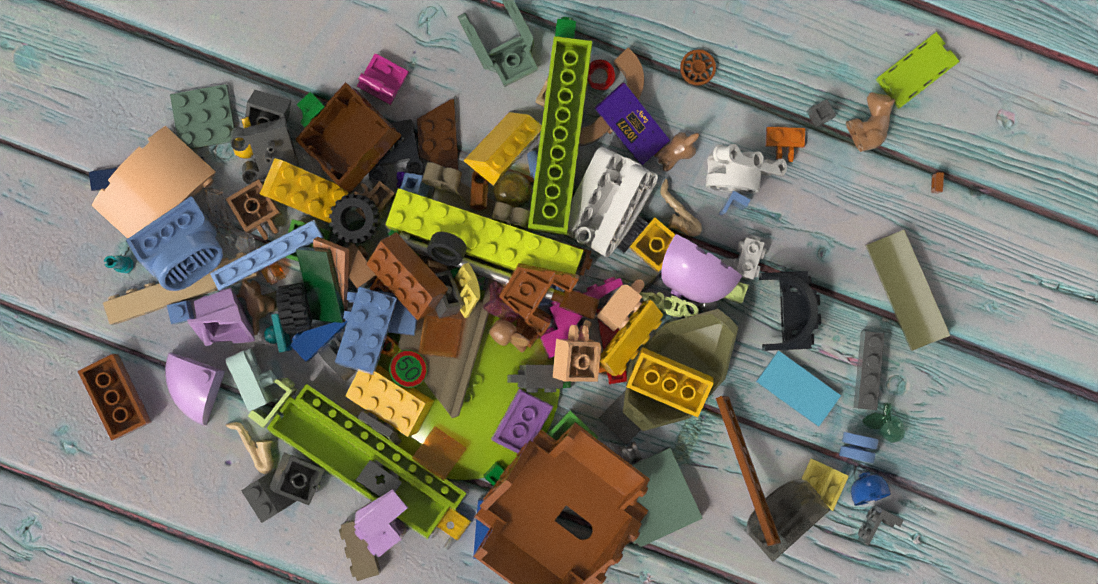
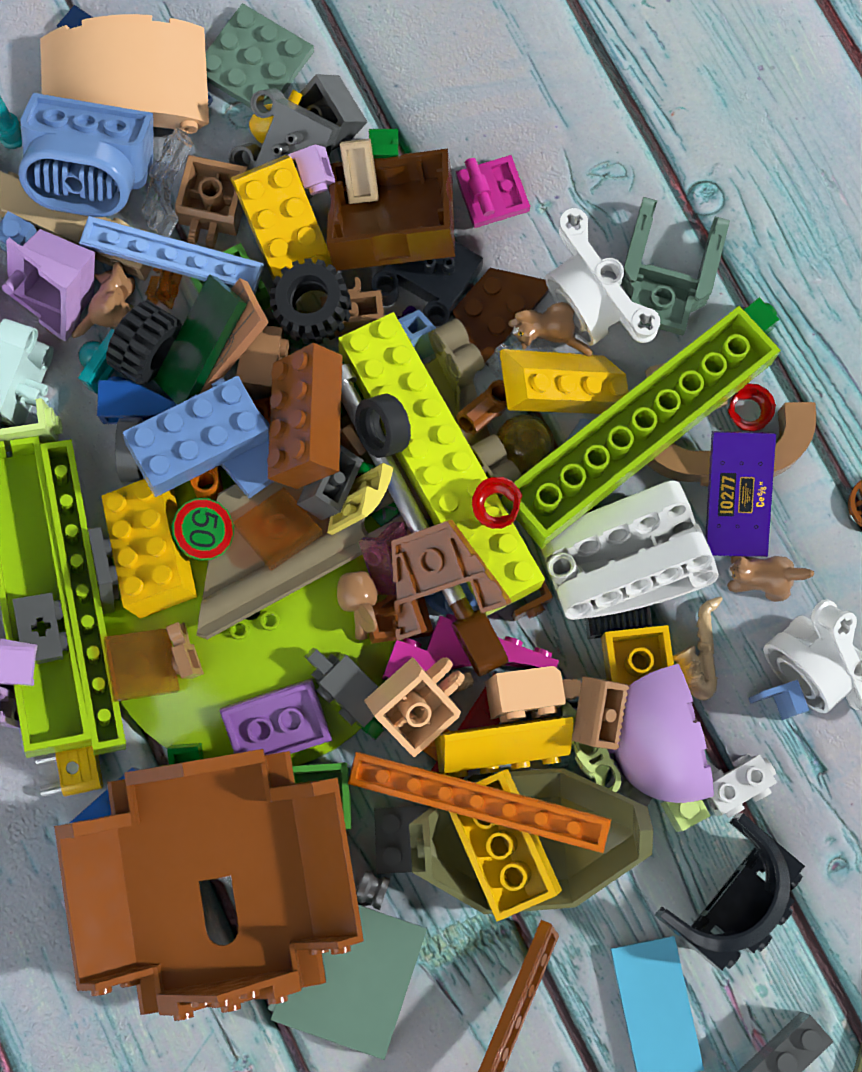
camera: 45 degrees right, 10 degrees down
(294, 152) = (313, 168): none -> lavender brick
(314, 131) = (359, 171): none -> tan tile
(454, 431) = (185, 656): none -> medium nougat plate
(473, 122) = (553, 325): none -> medium nougat animal
(479, 97) = (595, 298): none -> white piece
(525, 226) = (491, 486): none -> red piece
(643, 374) = (480, 802): none -> orange tile
(660, 286) = (600, 713): none -> medium nougat brick

